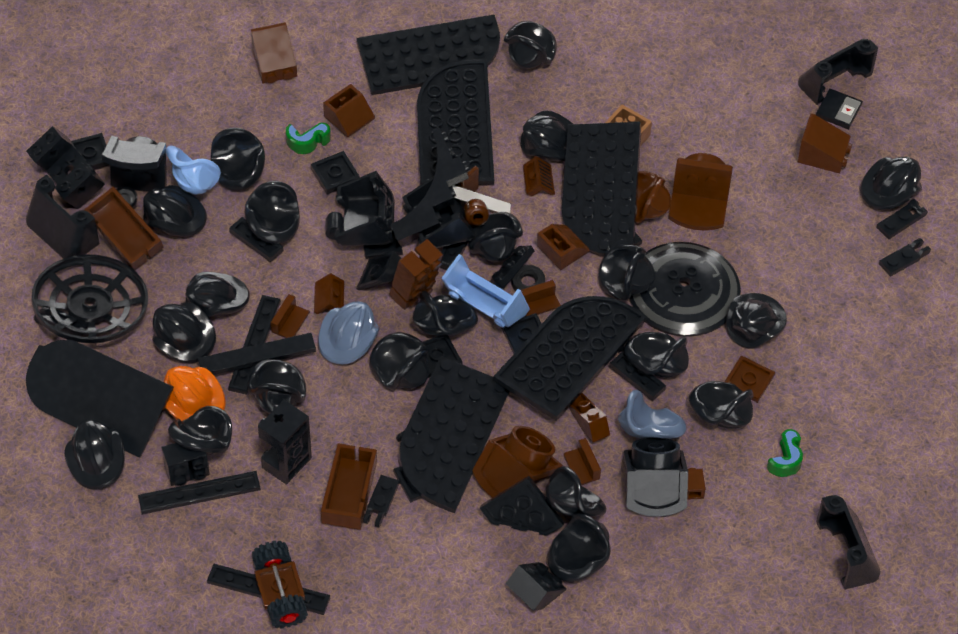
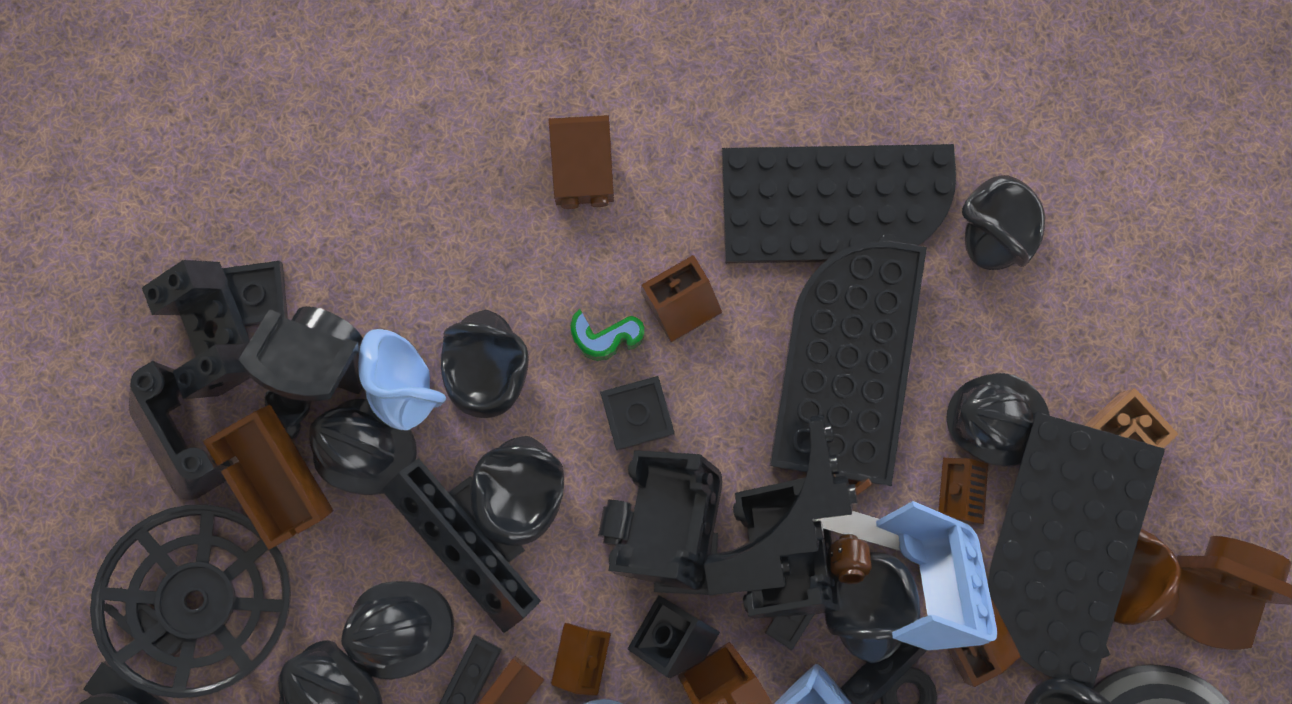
camera: 10 degrees right, 25 degrees up
(284, 267) = (461, 545): none -> black brick
(530, 208) = (951, 578): none -> light blue windscreen

